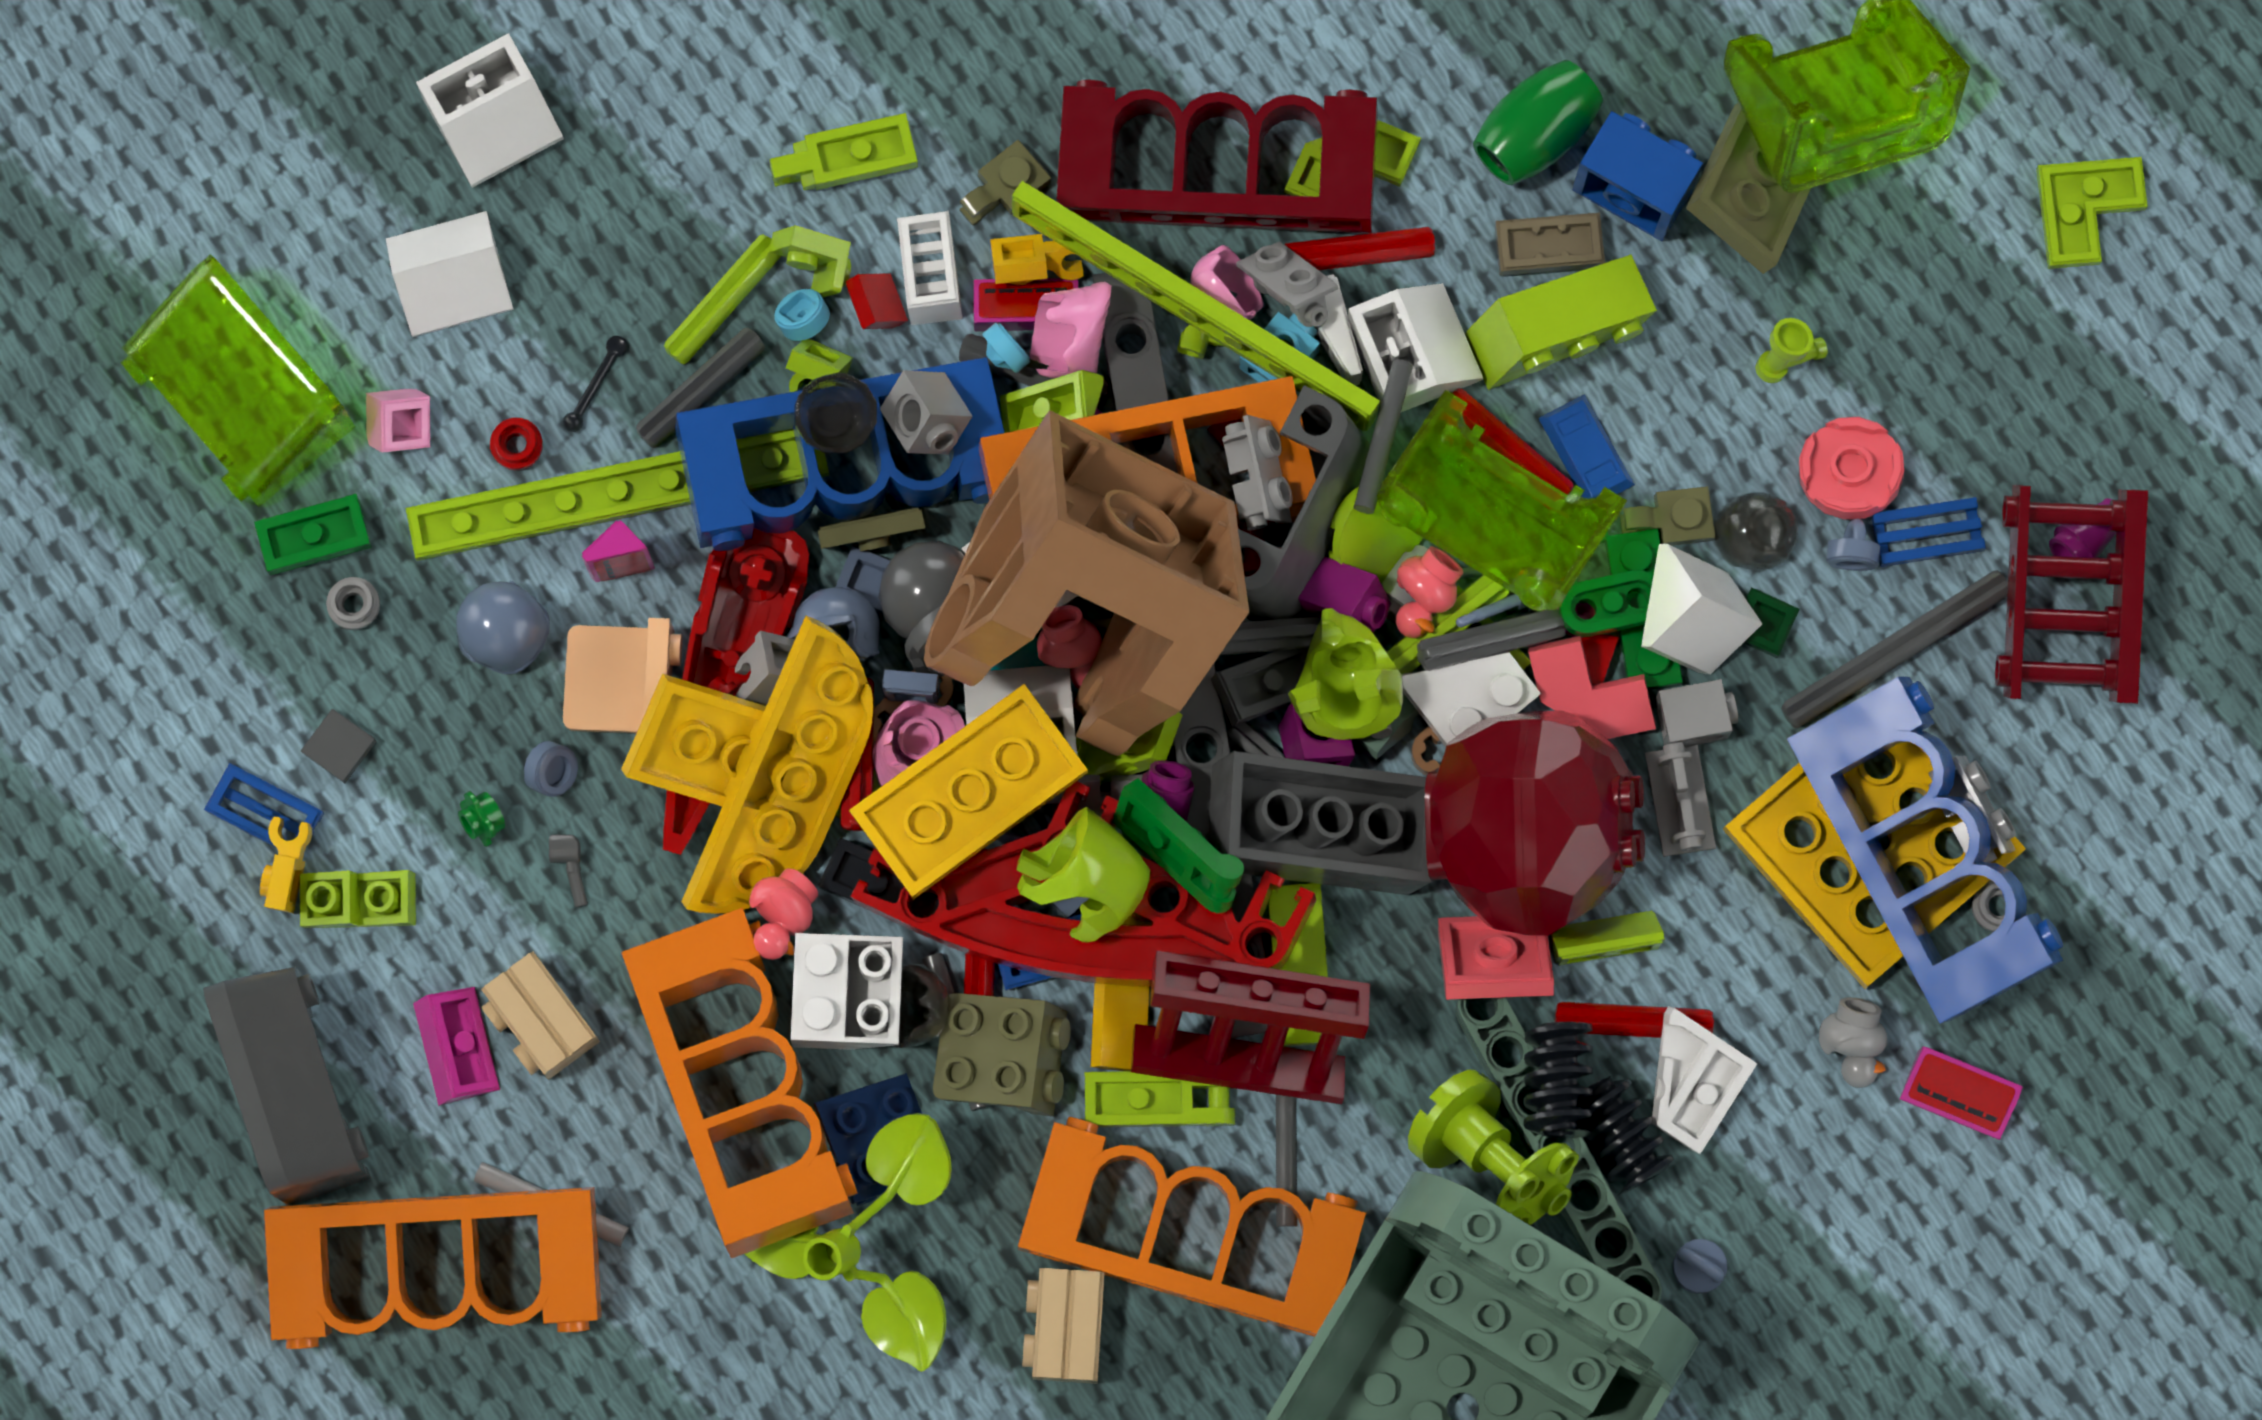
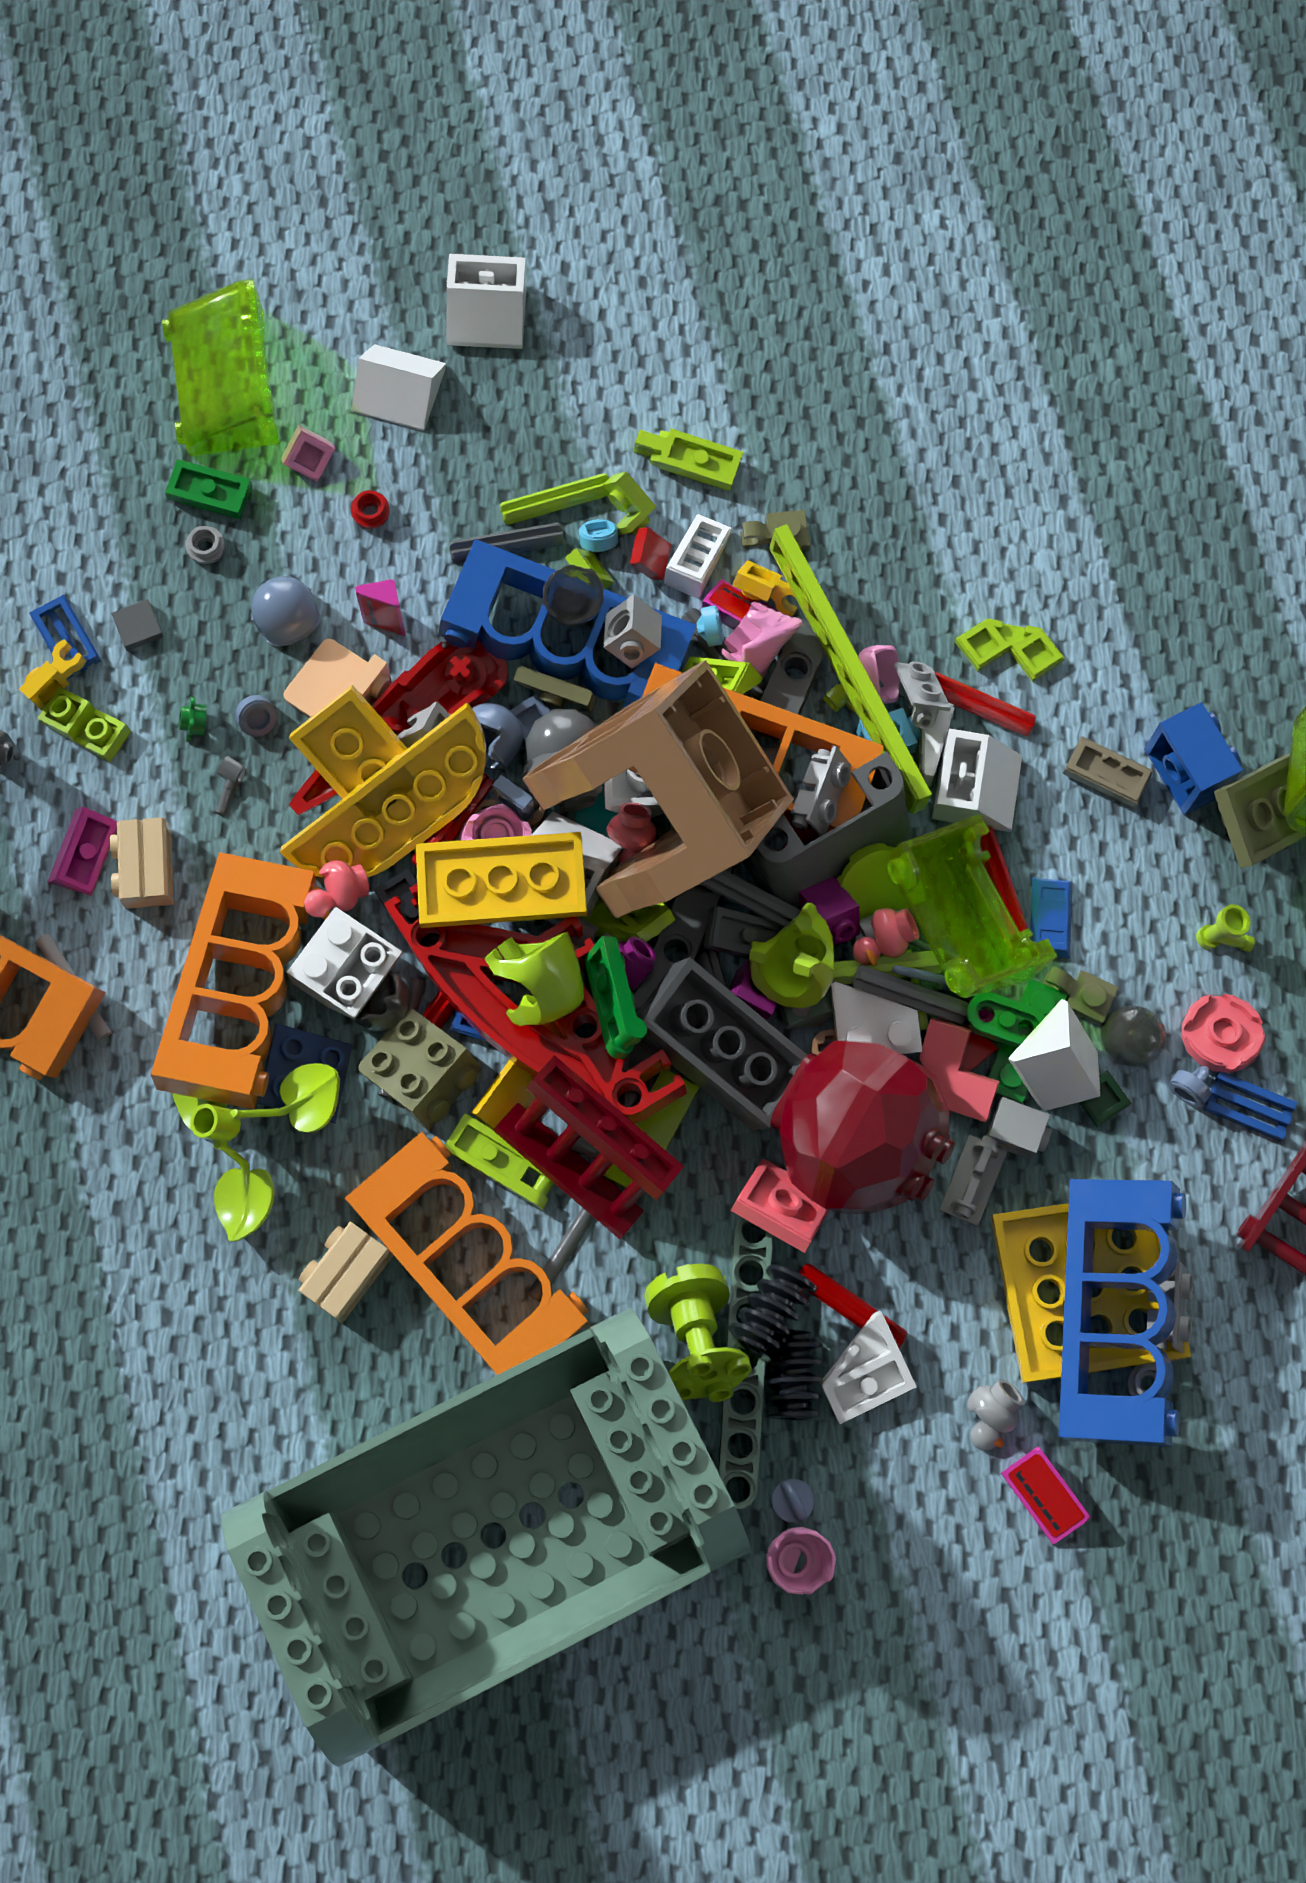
camera: 30 degrees right, 5 degrees down
(588, 497) = (381, 562): lime tile -> none
(616, 347) = (470, 489): black hinge -> none
(1347, 173) = (999, 652): dark red fence -> none
(1383, 436) = (920, 819): dark grey bar -> none
(1538, 122) = (1147, 689): green piece -> none
(1560, 320) = (1084, 821): lime wedge -> none
(1607, 938) = (866, 1240): lime slope -> none
(1768, 1315) = (784, 1555): none -> bright pink hair
(1895, 649) = (1183, 1169): dark grey axle -> none

